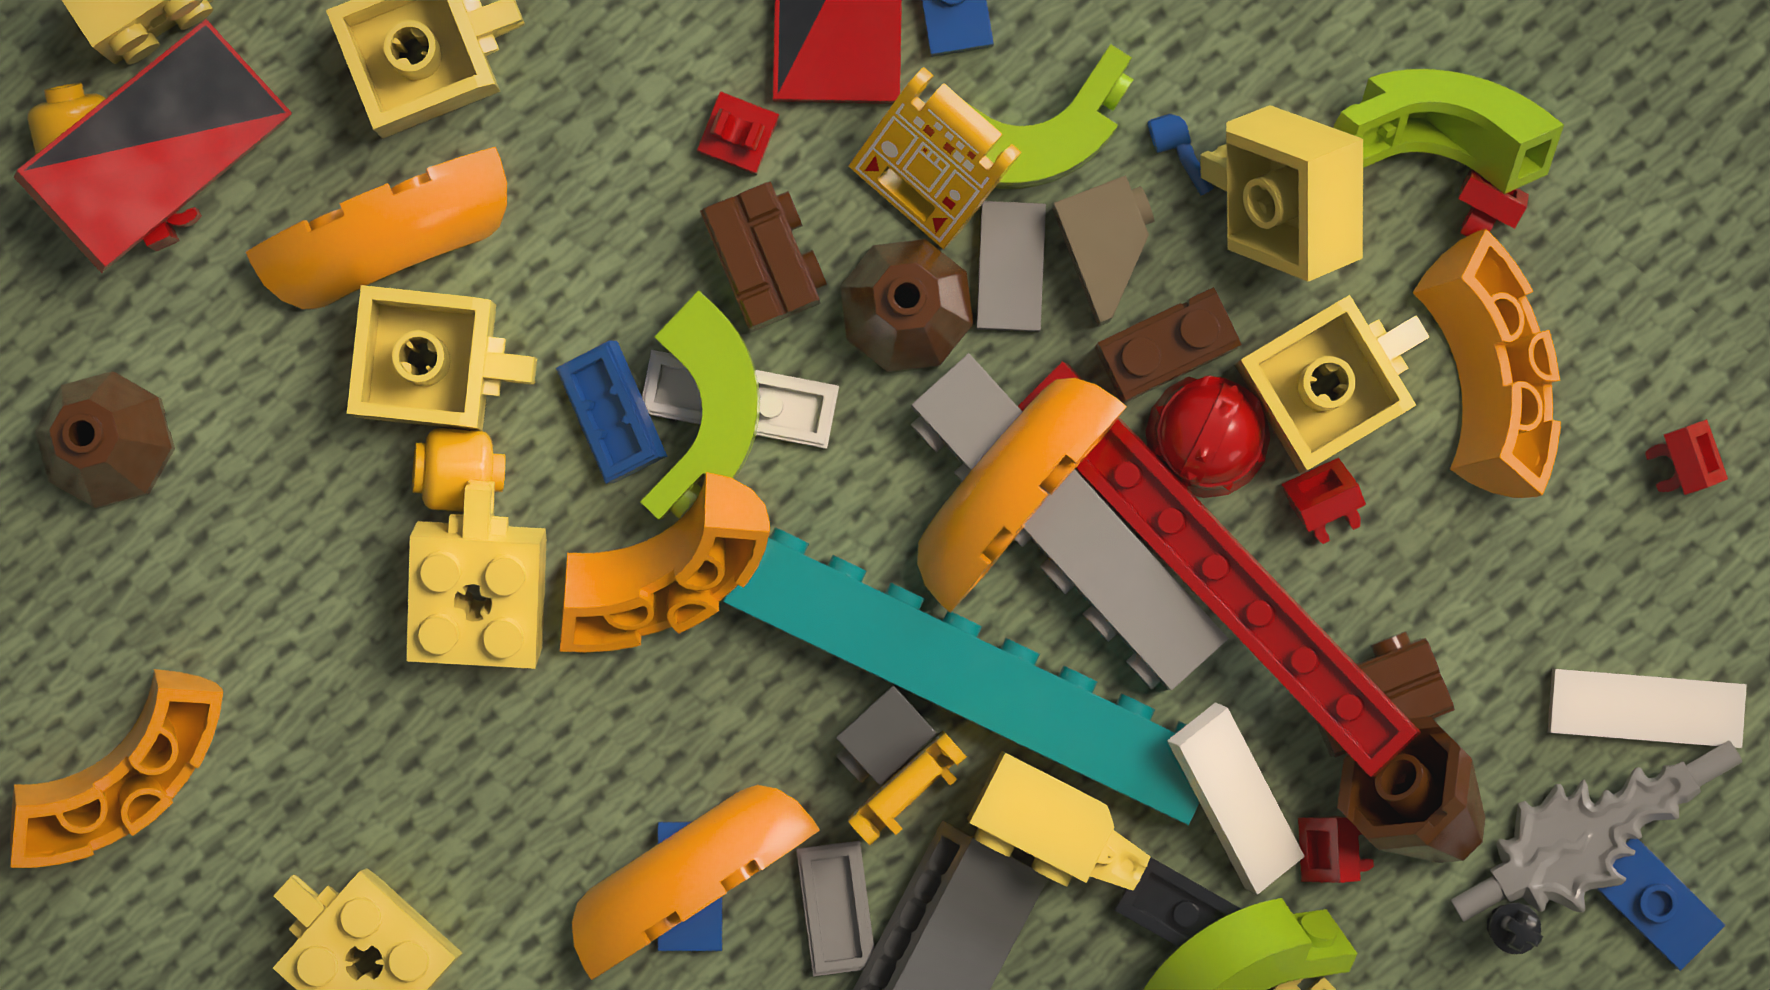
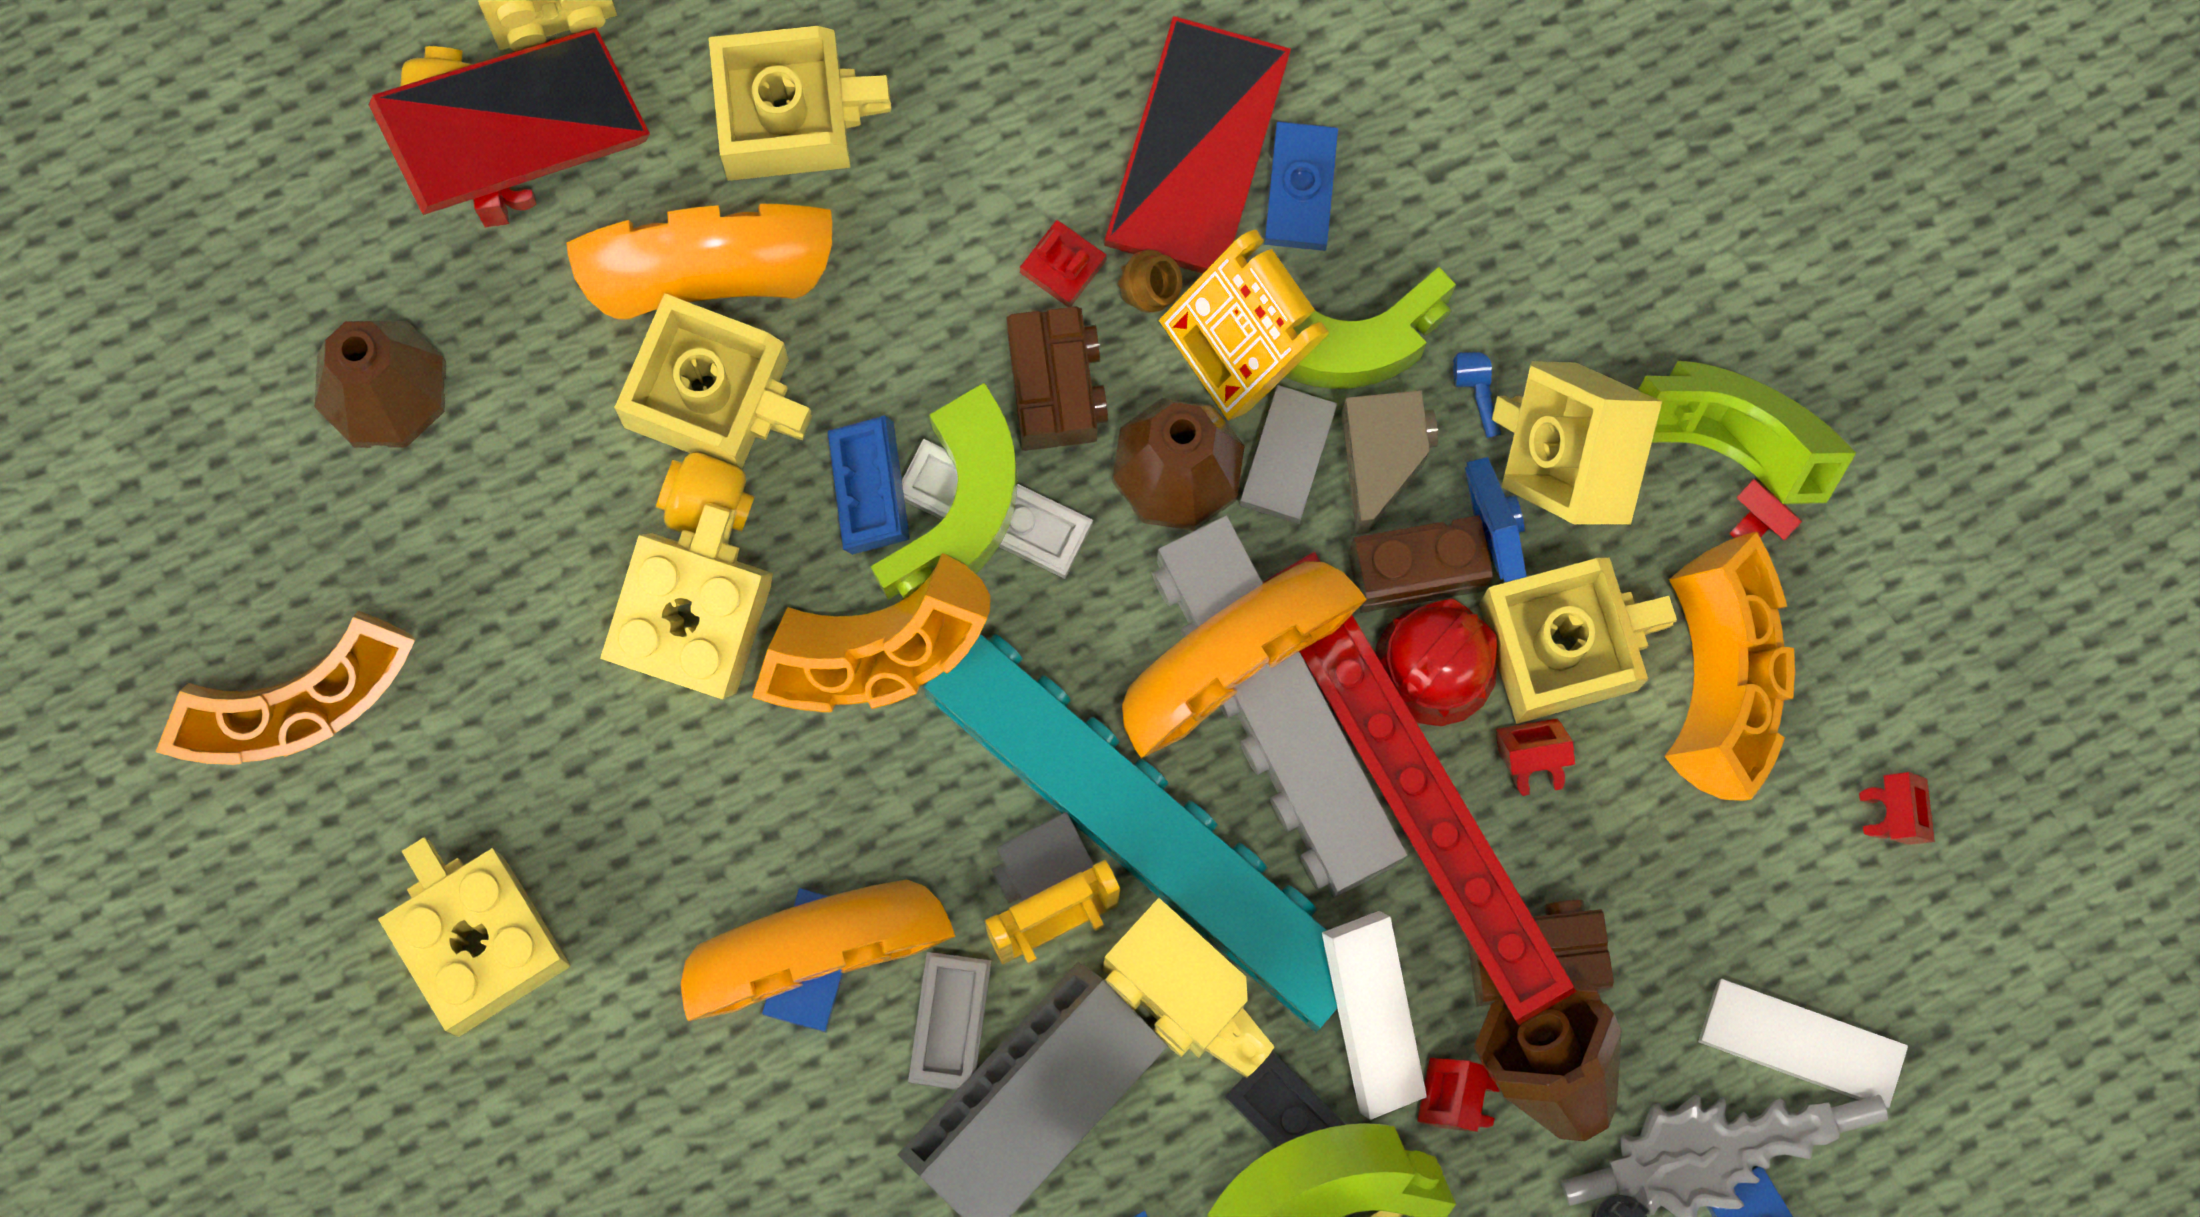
camera: 10 degrees right, 10 degrees down
(830, 131) = (1150, 281): none -> pearl gold plate
(1233, 284) = (1500, 519): none -> blue plate

